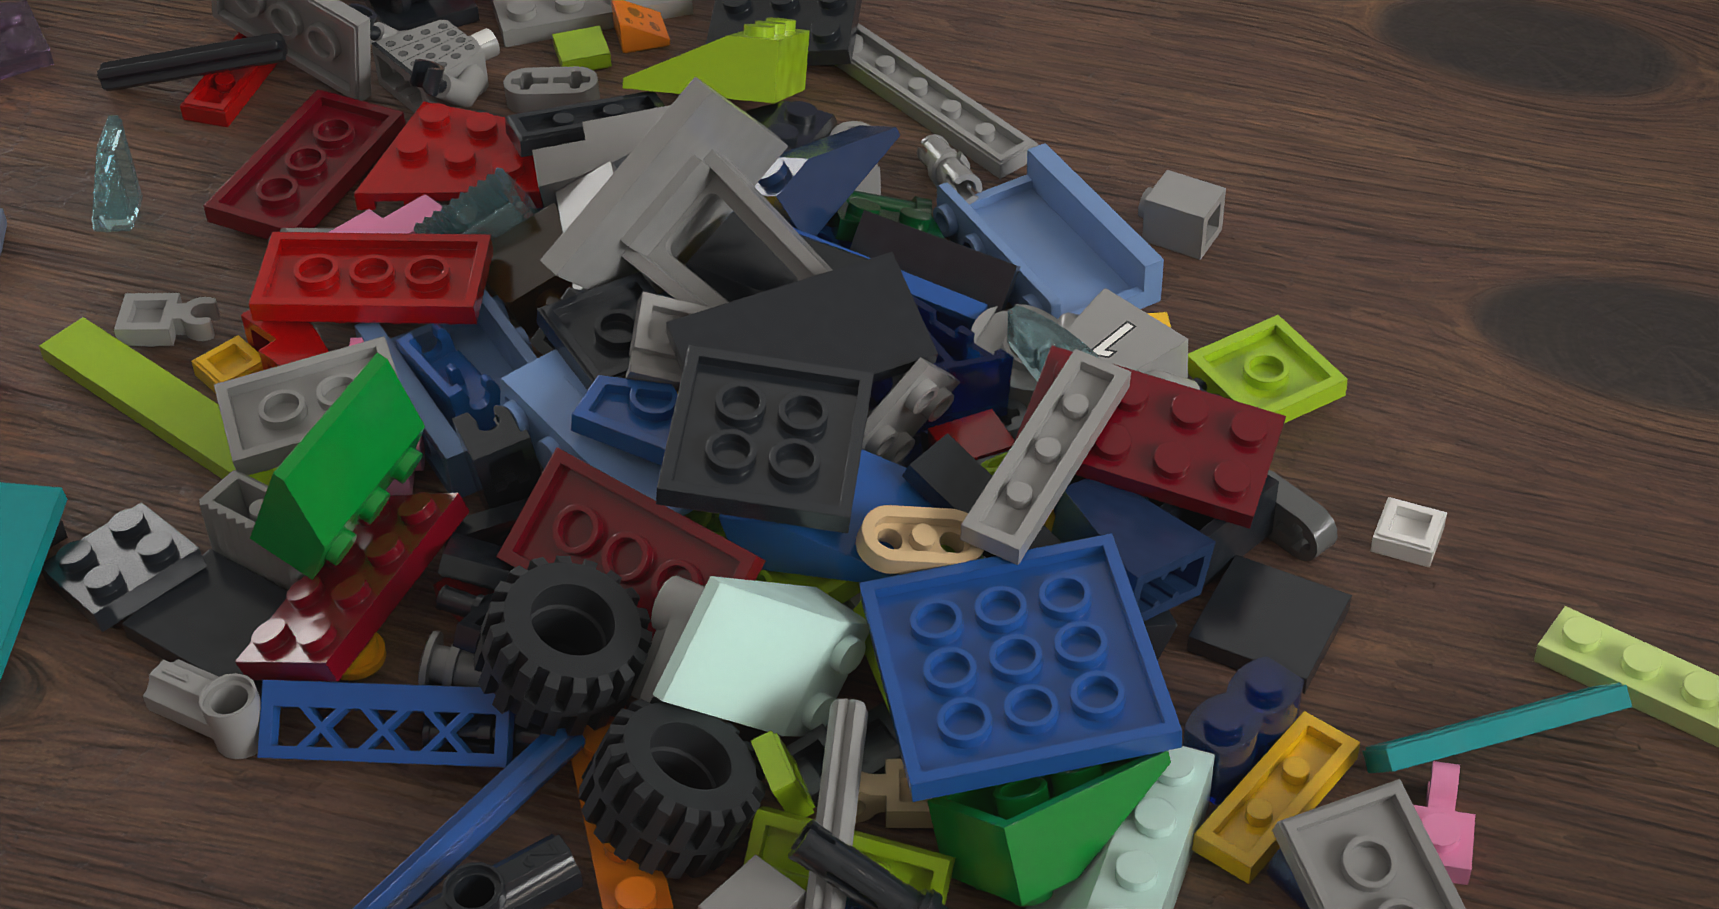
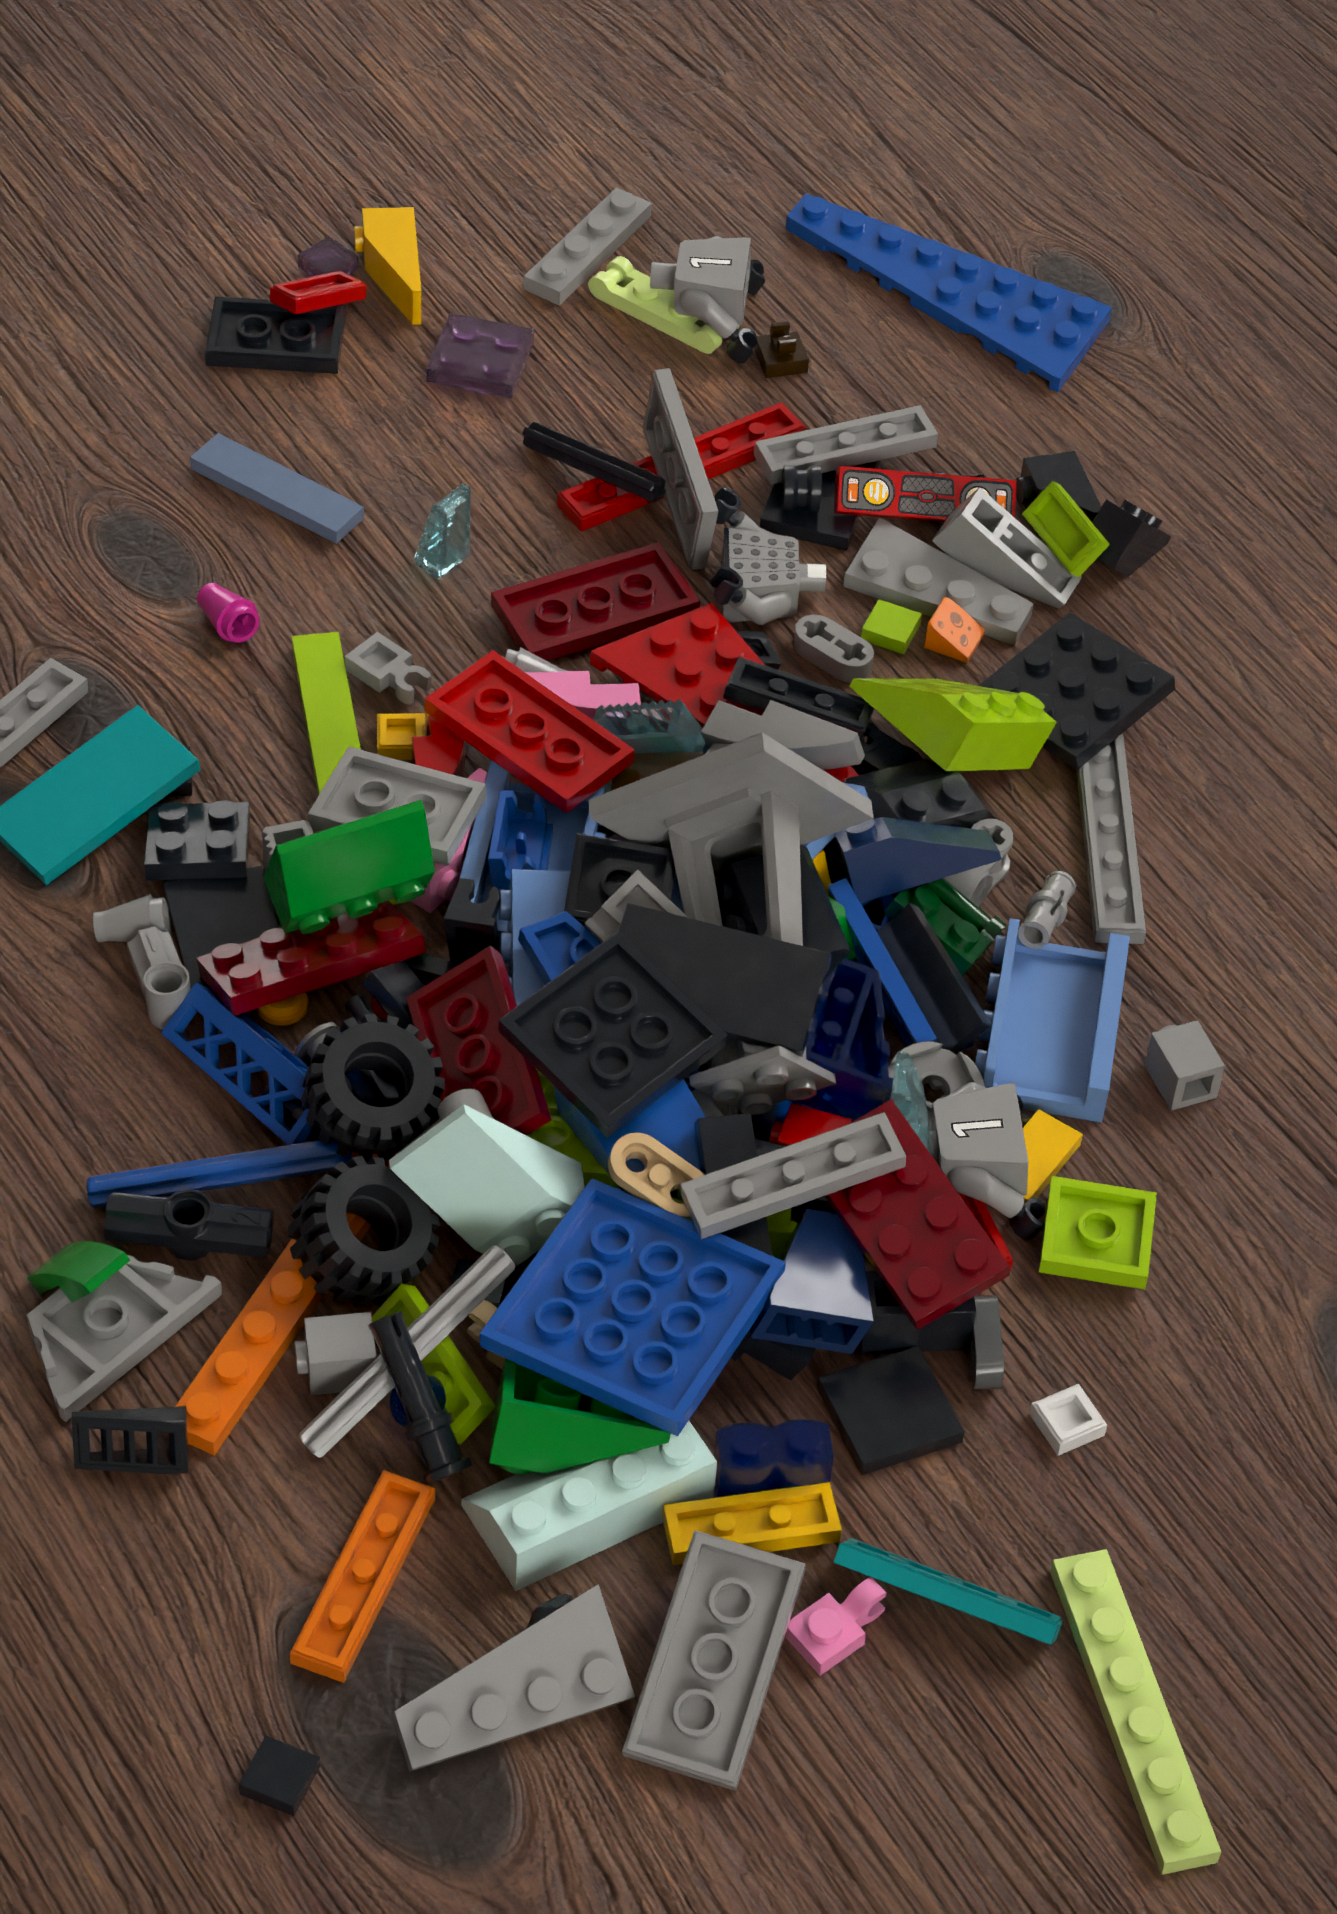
camera: 35 degrees right, 5 degrees up
(123, 675) = (125, 920): none -> light grey cone
(783, 774) = (439, 1269): lime tile -> none

